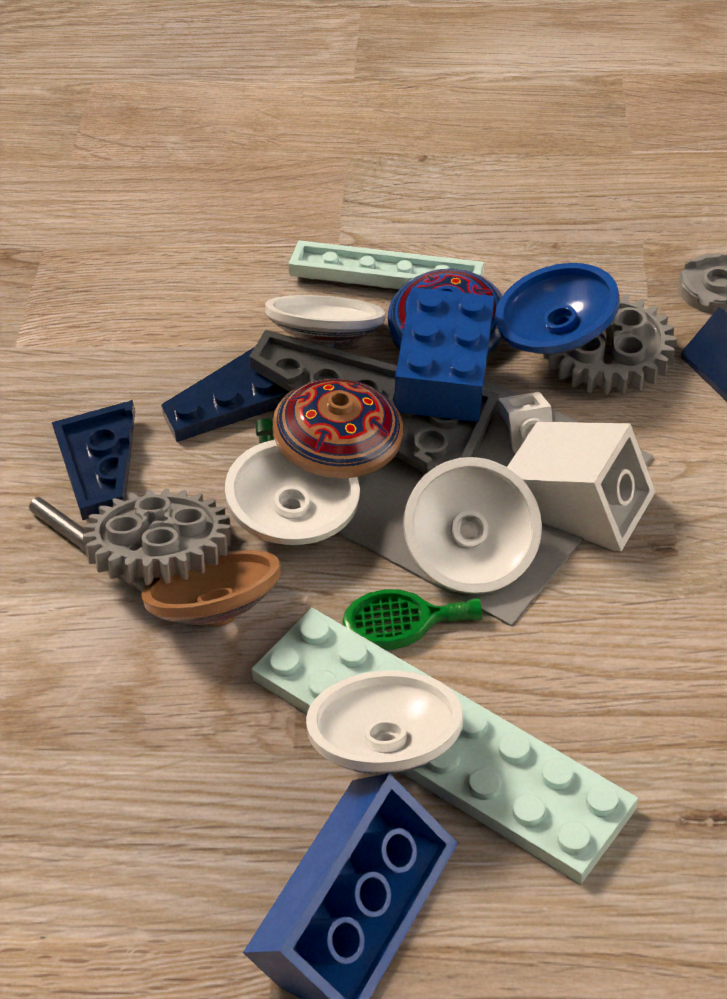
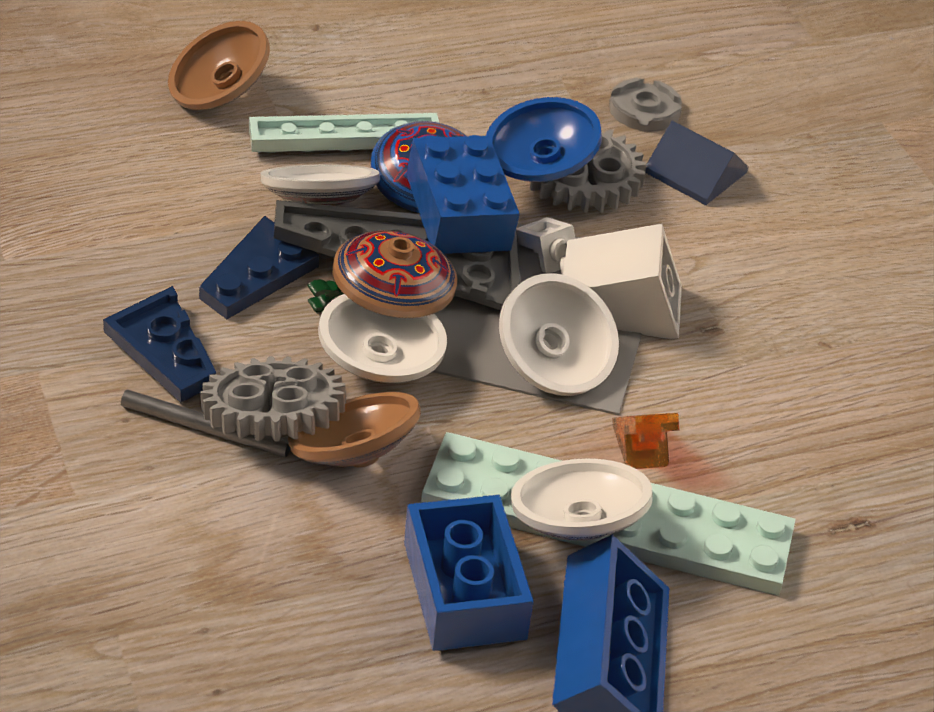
camera: 30 degrees left, 5 degrees down
(235, 773) = (467, 572): none -> blue brick
(294, 186) = (219, 65): none -> medium nougat dish
(427, 614) = (545, 417): green piece -> none
(515, 662) = (645, 438): none -> clear orange slope

